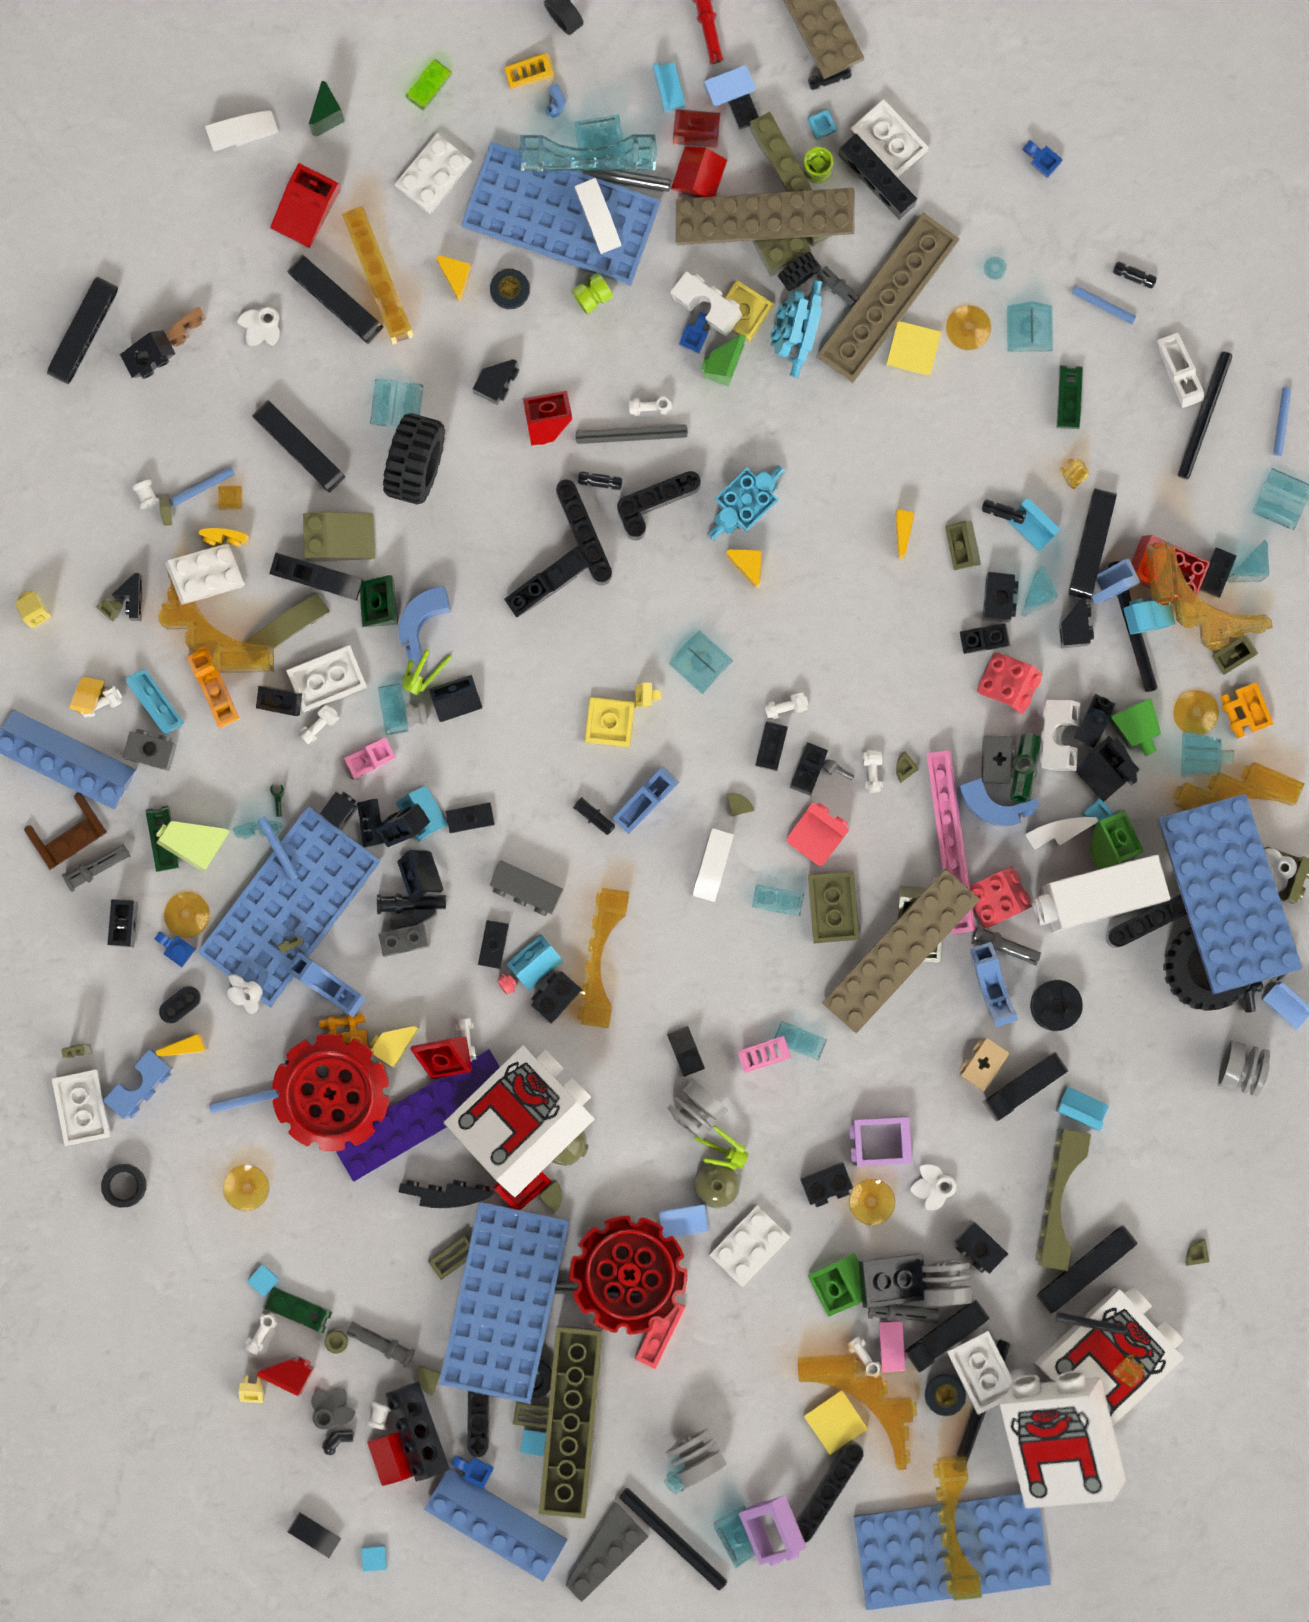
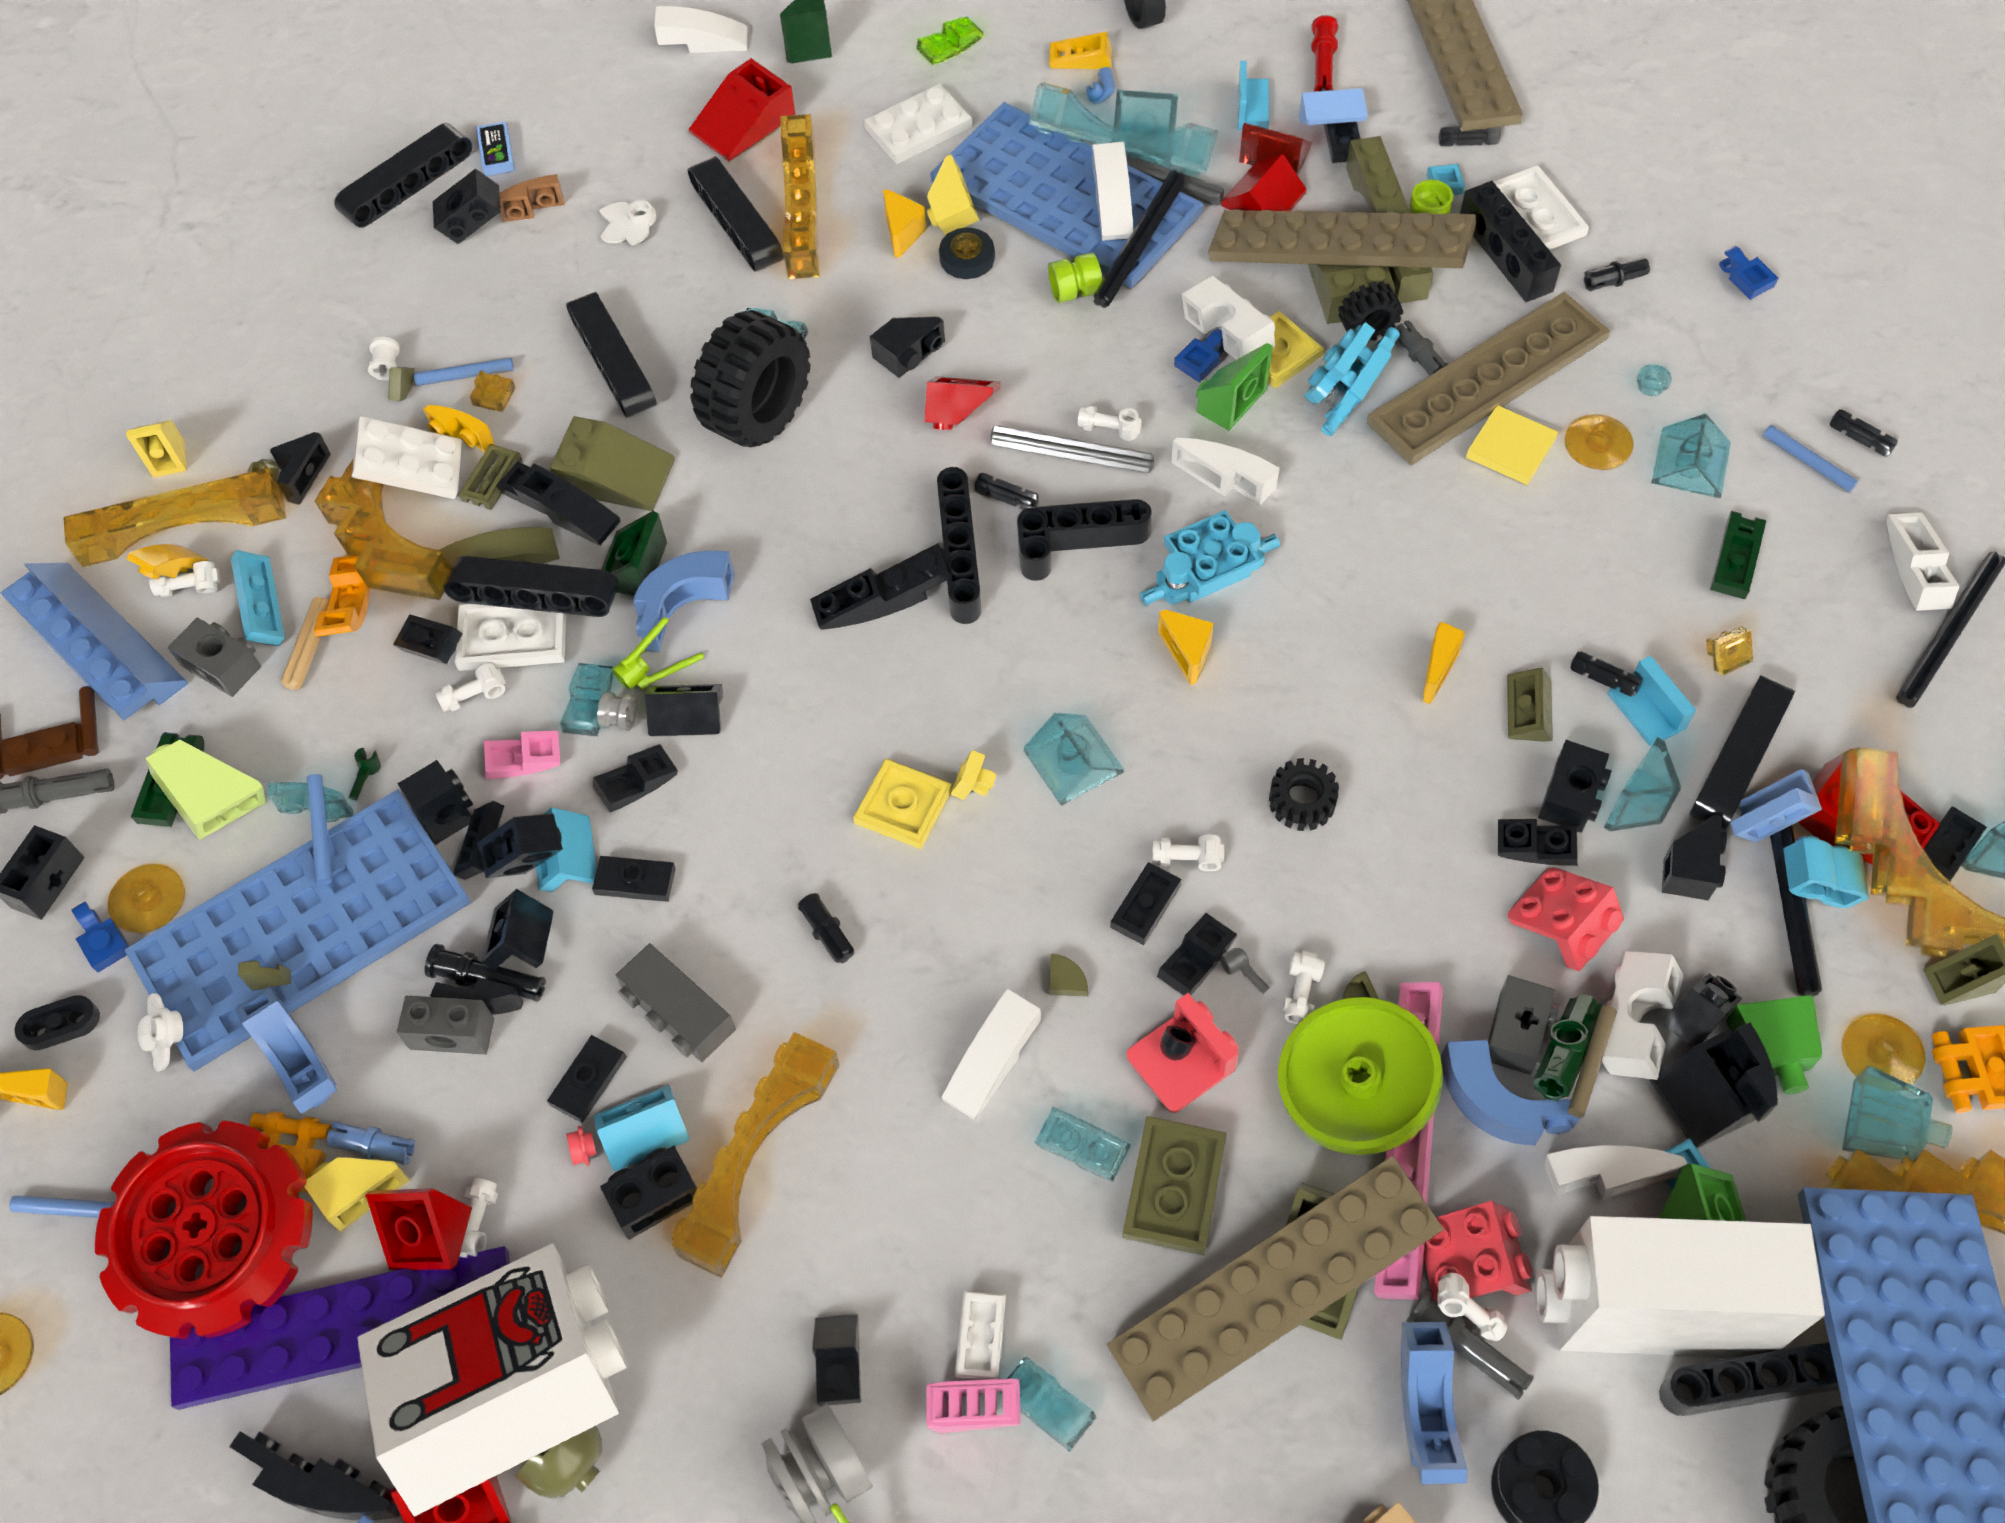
camera: 20 degrees right, 25 degrees down
(52, 671) = (110, 530): none -> clear yellow arch
(135, 284) = (495, 148): none -> tile
(199, 721) = (304, 647): none -> tan axle
(266, 584) = (489, 492): none -> olive tile
(330, 648) = (531, 586): none -> black beam
(391, 1017) = (370, 1143): none -> medium blue pin
(444, 753) = (641, 776): none -> black slope
(485, 249) = (950, 199): none -> light yellow slope
(627, 248) = (1139, 239): none -> black axle
(646, 800) = (917, 926): medium blue slope -> none
(736, 423) = (1226, 468): none -> white slope
(756, 1018) = (980, 1336): none -> white plate
(813, 828) = (1176, 1043): none -> black hinge
(843, 634) = (1307, 776): none -> black tyre
(916, 818) = (1360, 1075): none -> lime dish
(955, 181) = (1615, 273): none -> black axle
(994, 928) = (1455, 1302): none -> white bar
(1039, 774) = (1592, 1061): none -> dark tan bar

